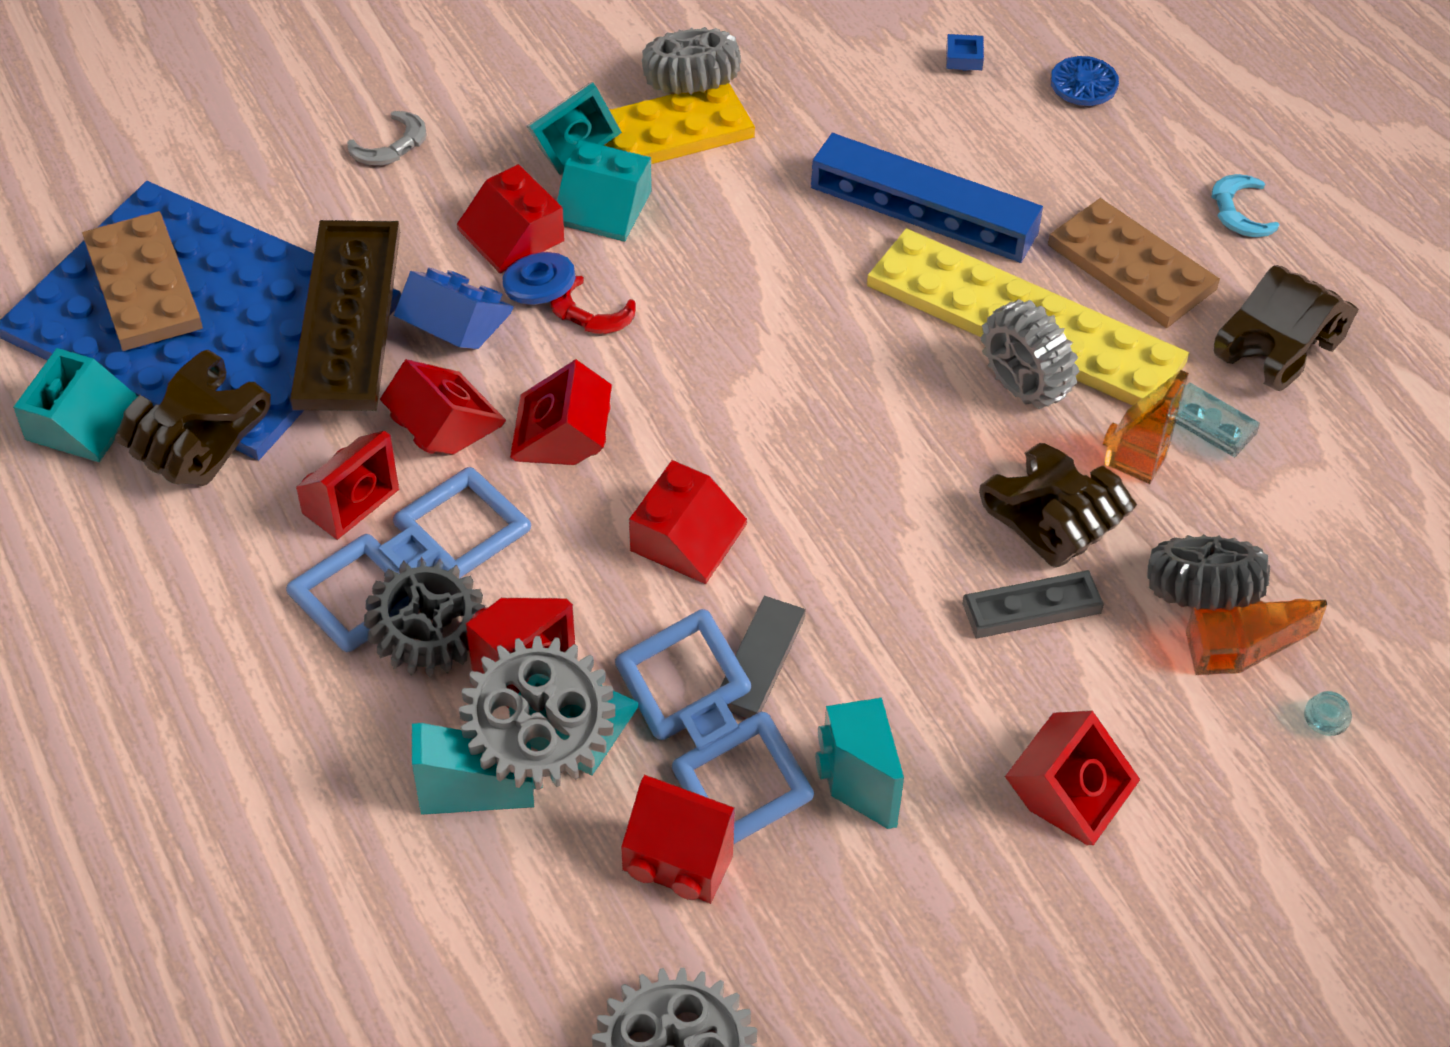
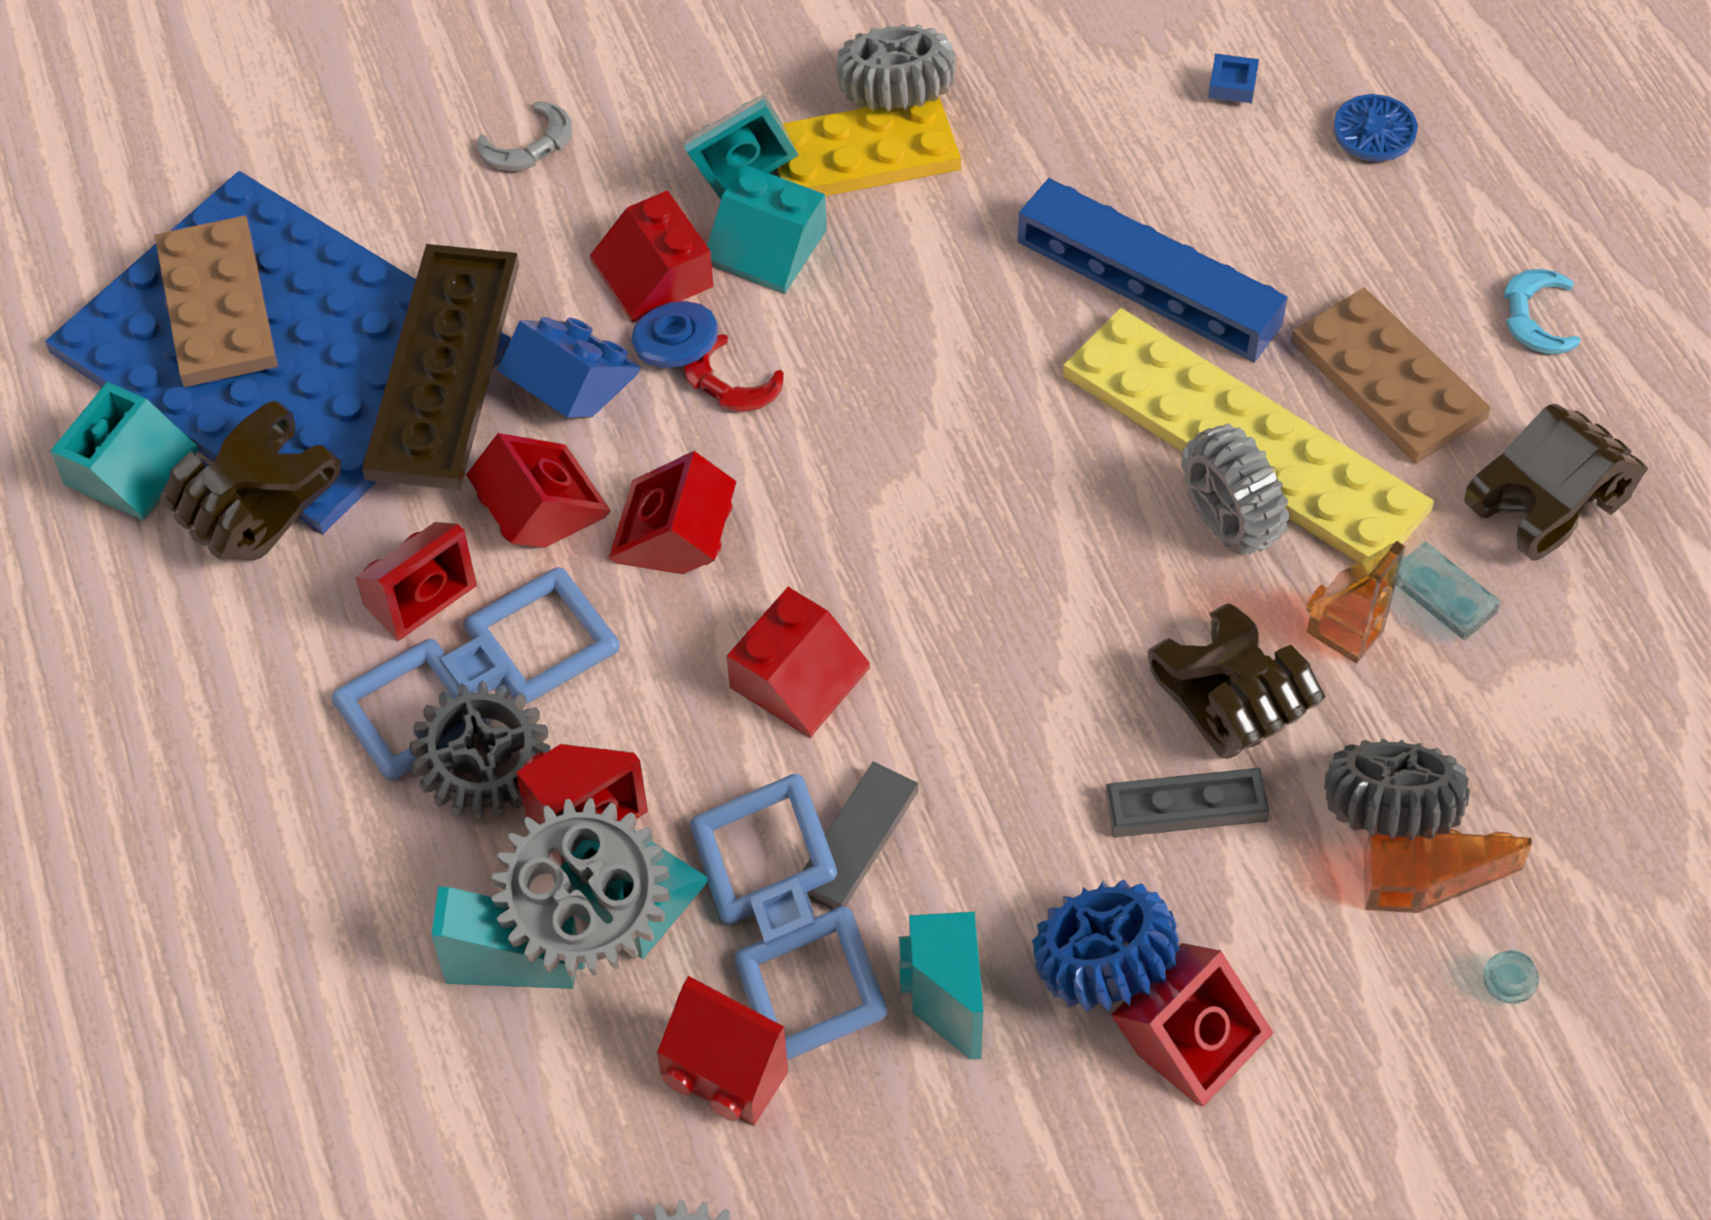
camera: 10 degrees right, 5 degrees up
(991, 719) = (1106, 945): none -> blue gear

